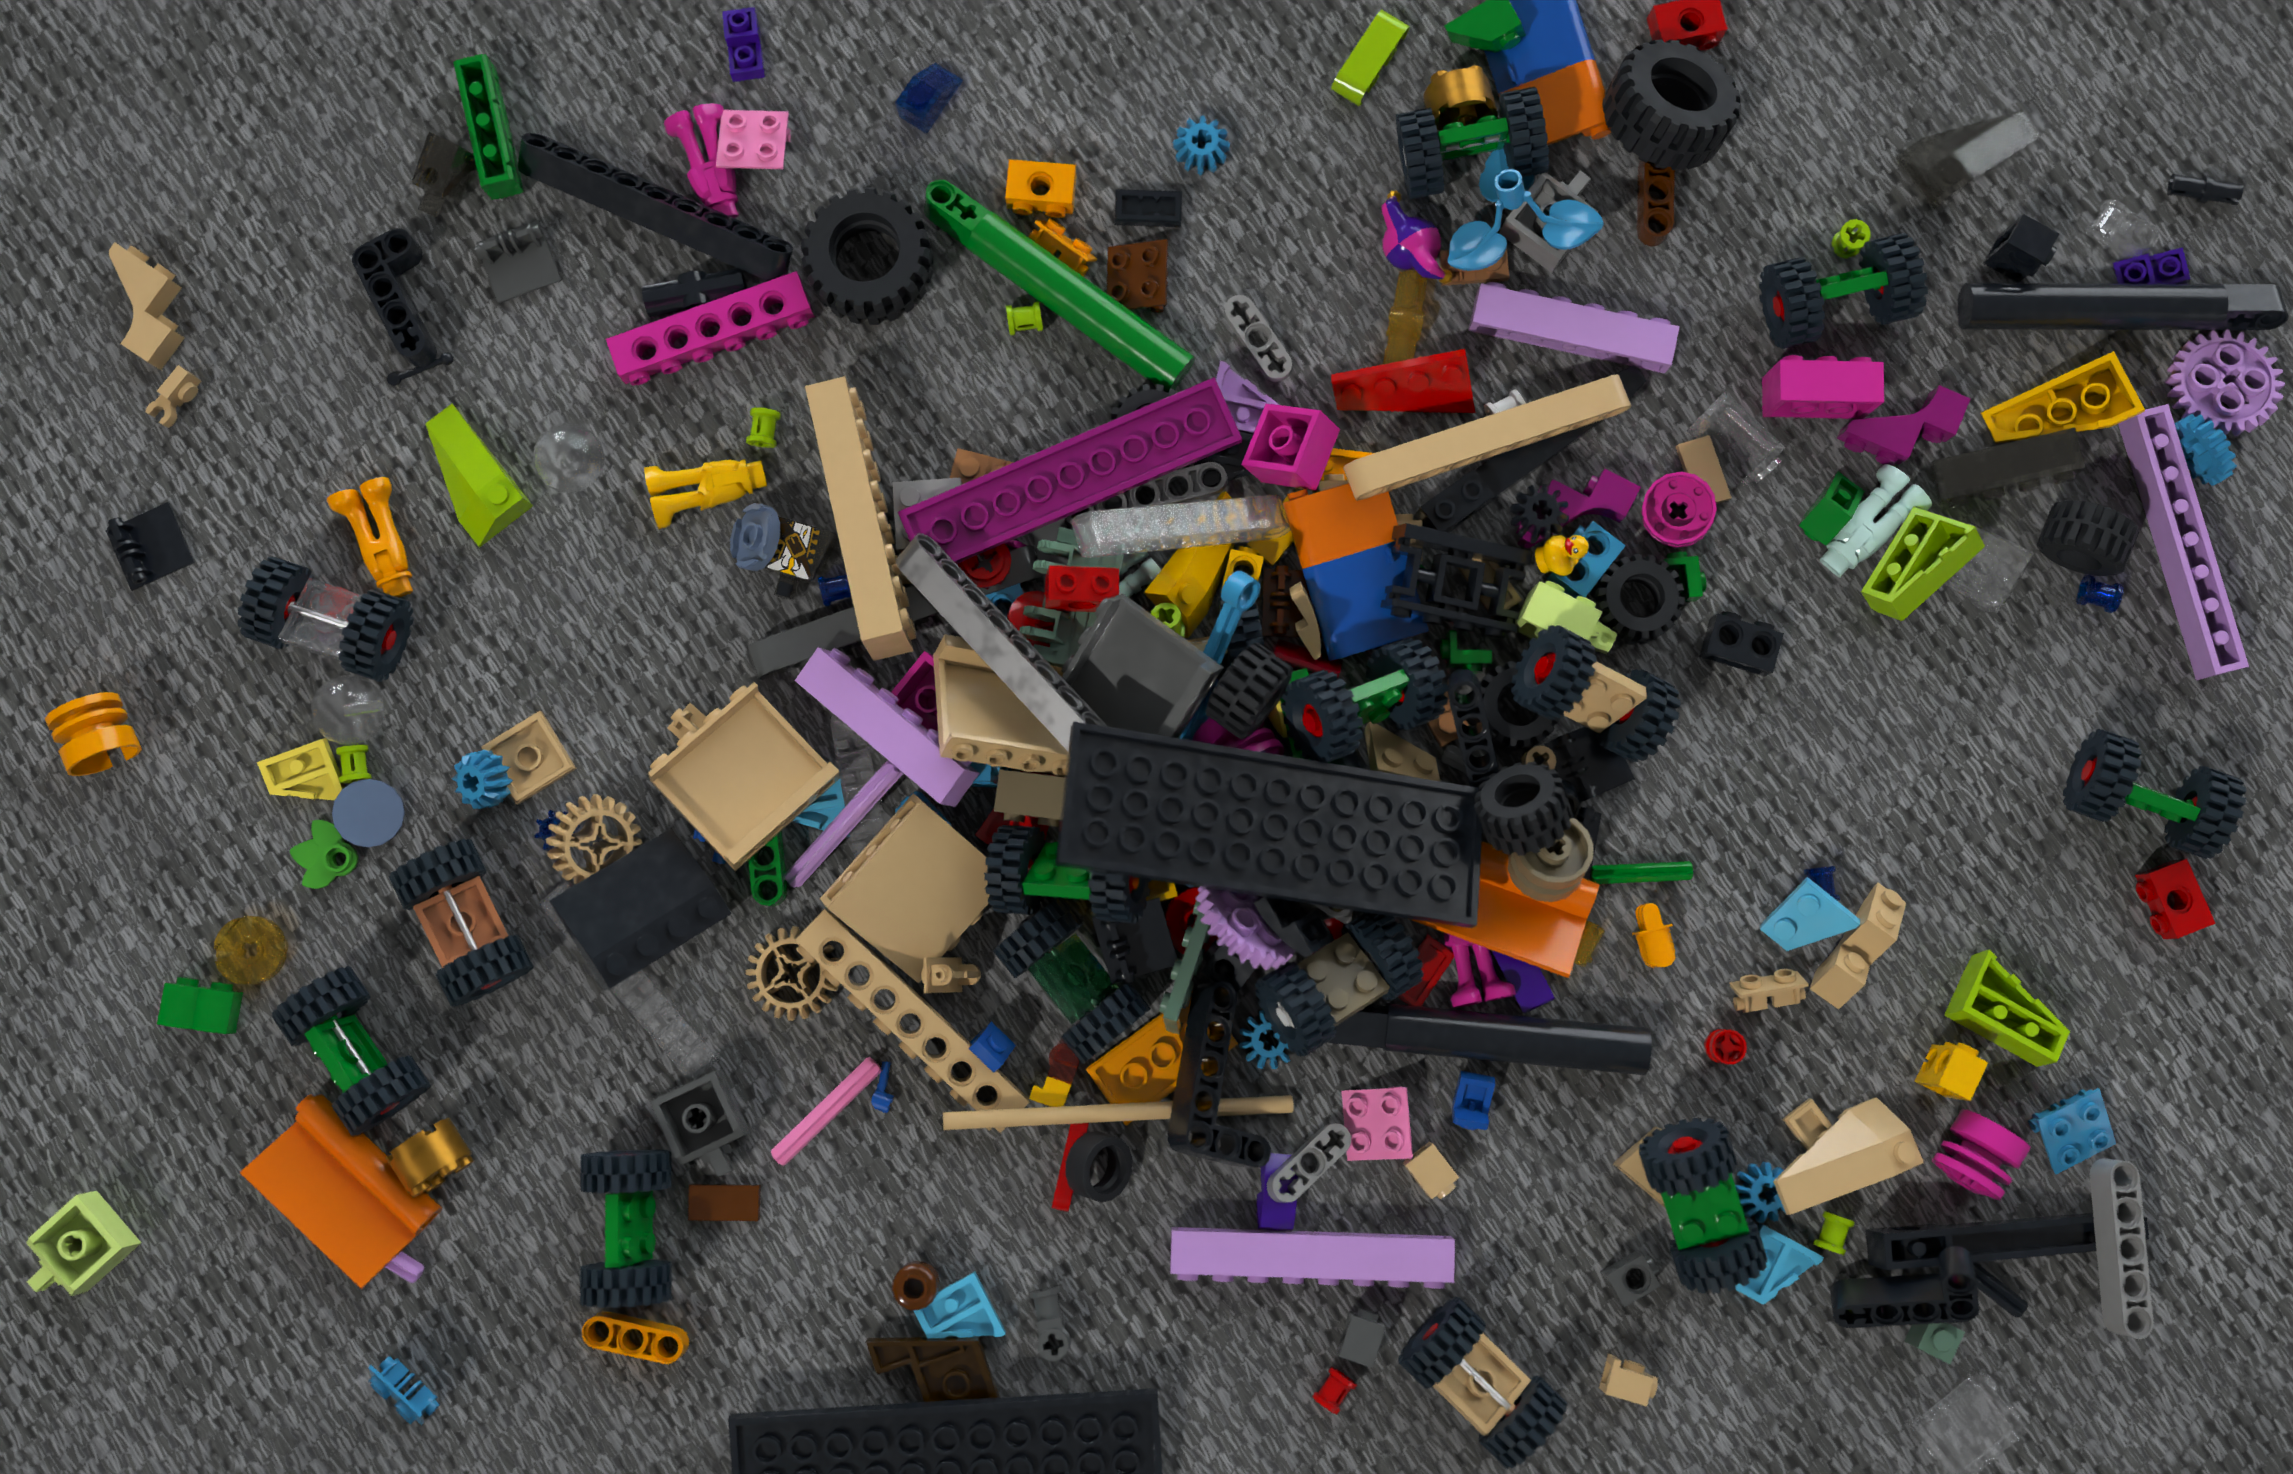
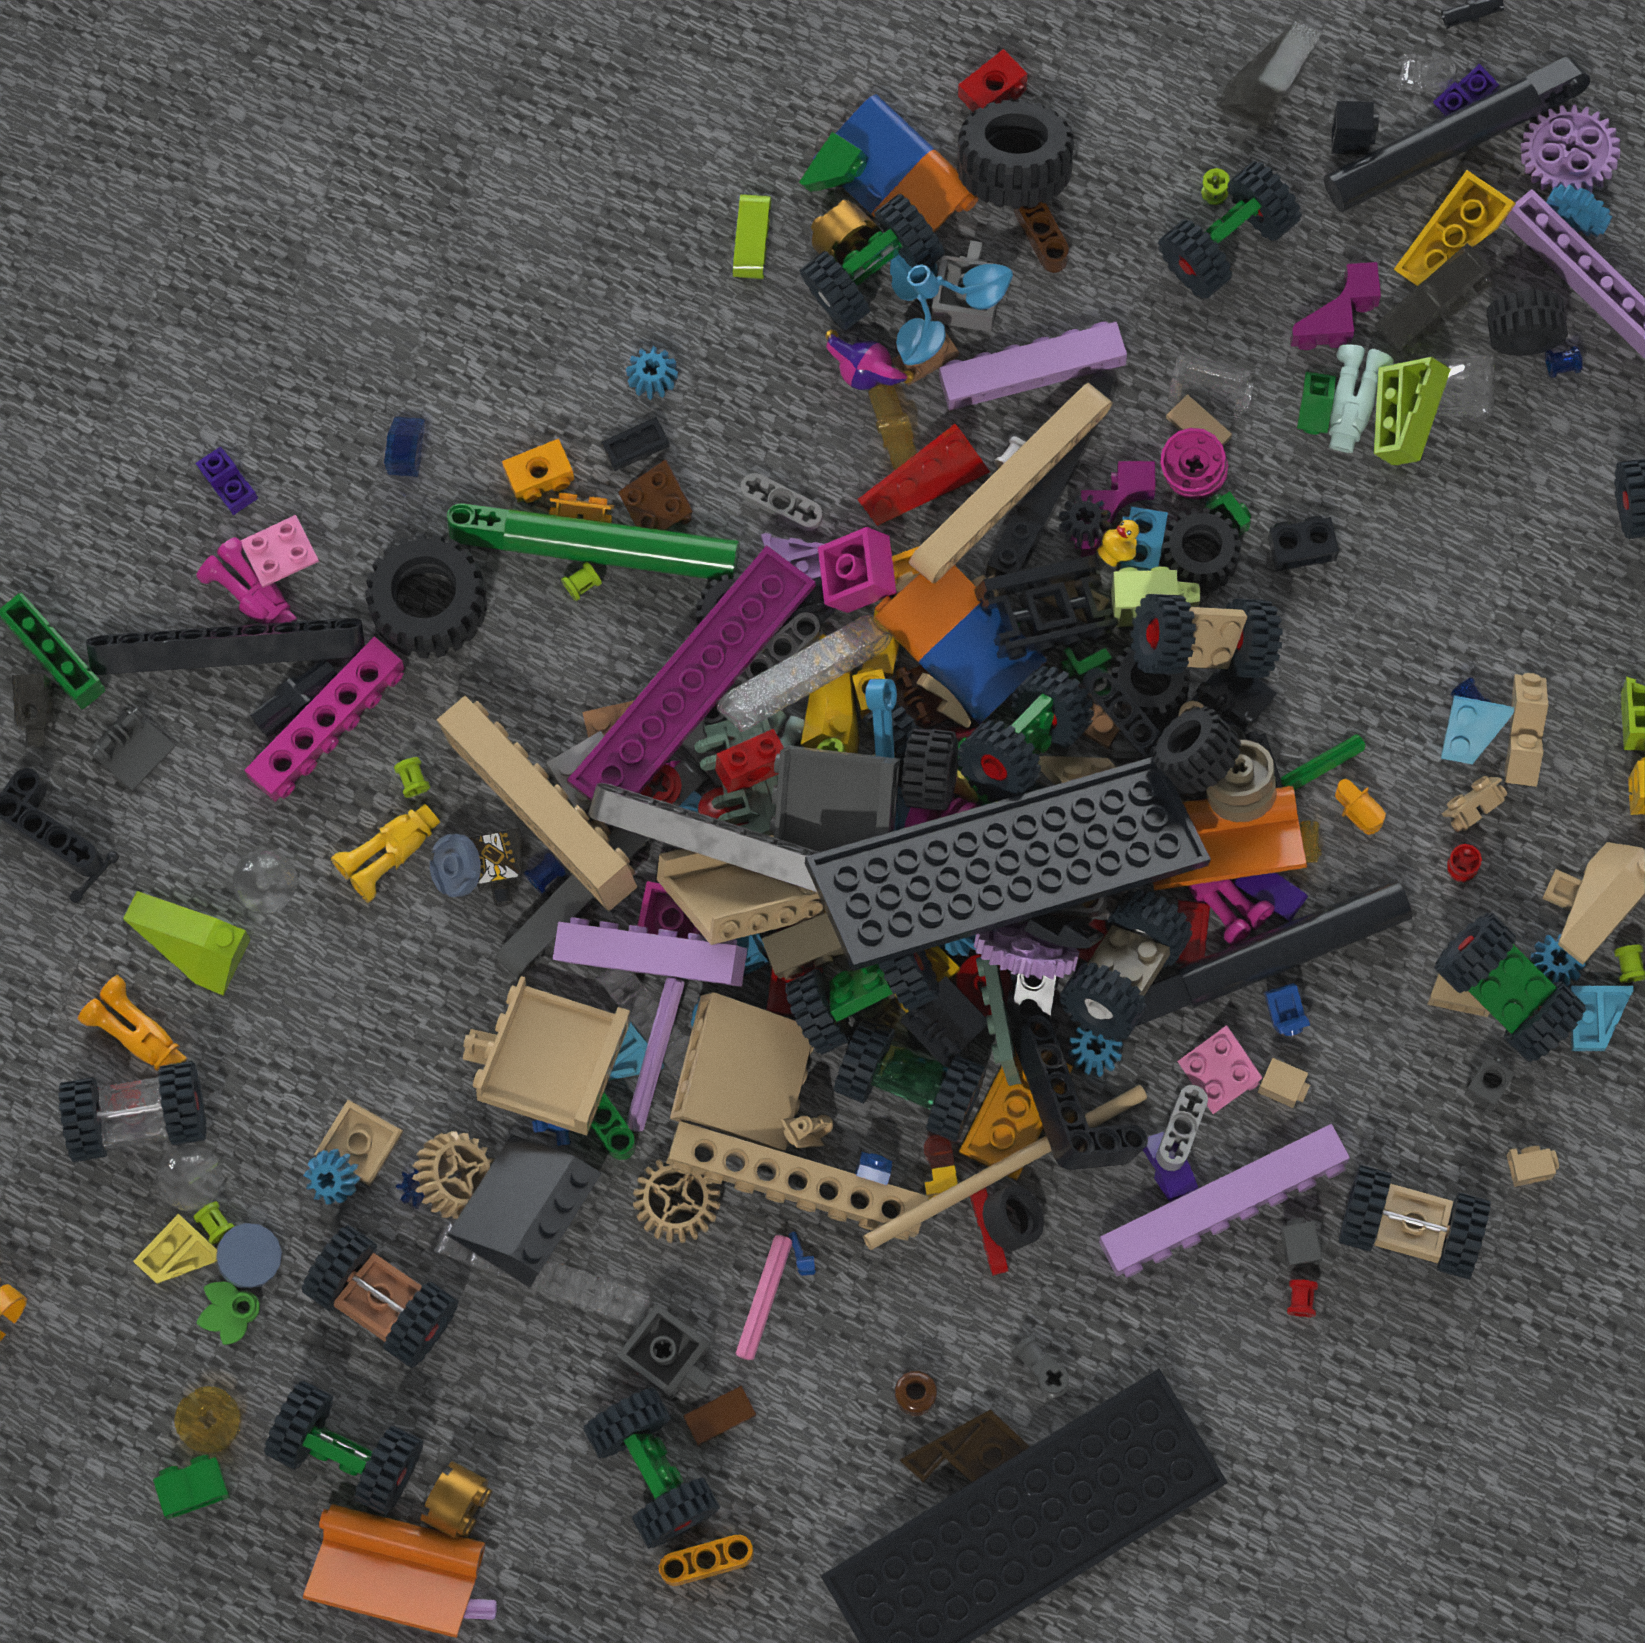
camera: 25 degrees left, 10 degrees down
(961, 1312) = (963, 1397): medium azure wing -> none
(1823, 388) = (1256, 312): dark pink brick -> none

